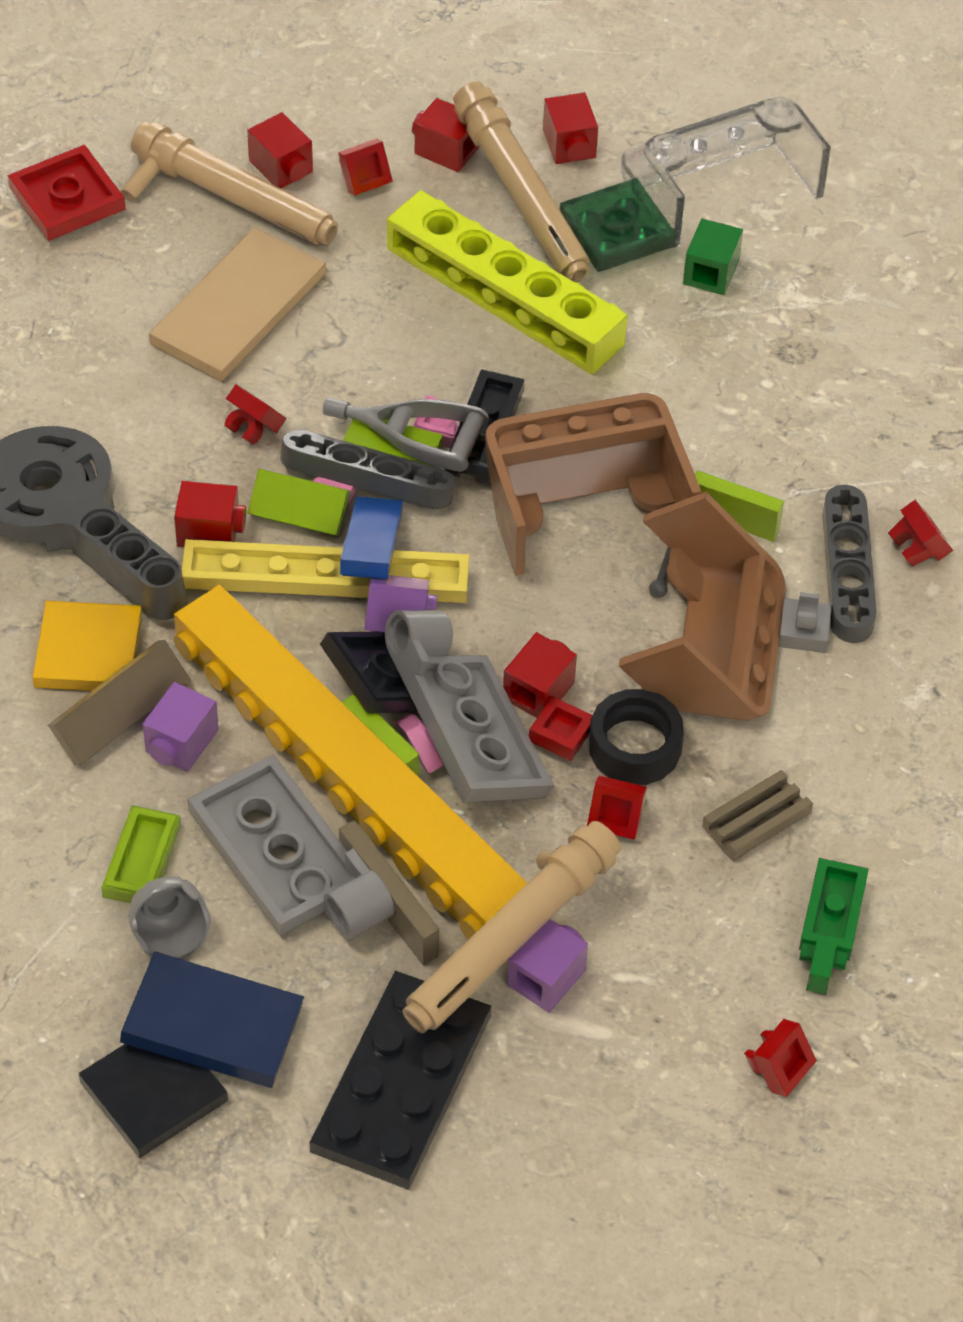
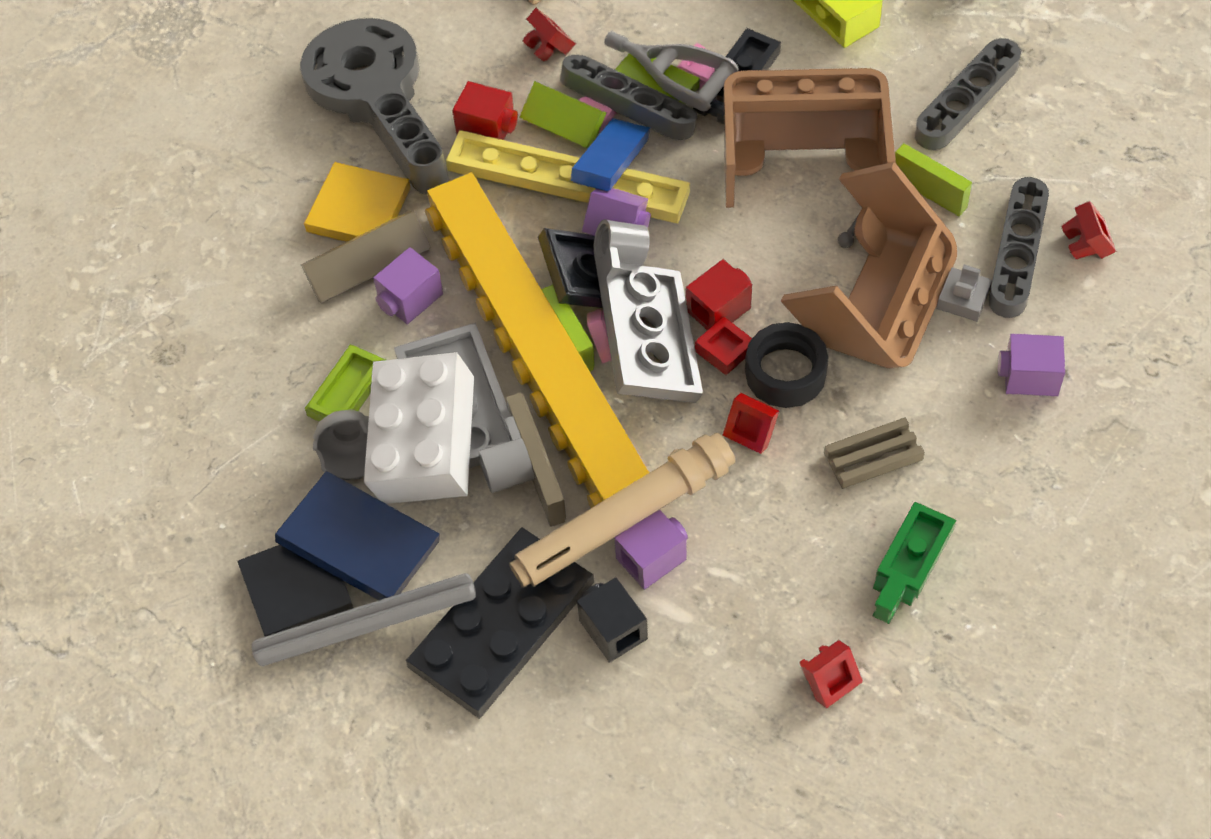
camera: 20 degrees right, 5 degrees up
(248, 1107) = (363, 619): none -> light grey axle
(253, 882) = (419, 428): none -> white brick
(528, 1048) = (612, 618): none -> black brick
(745, 403) = (964, 91): none -> dark grey beam
(902, 687) = (1033, 364): none -> medium lavender brick

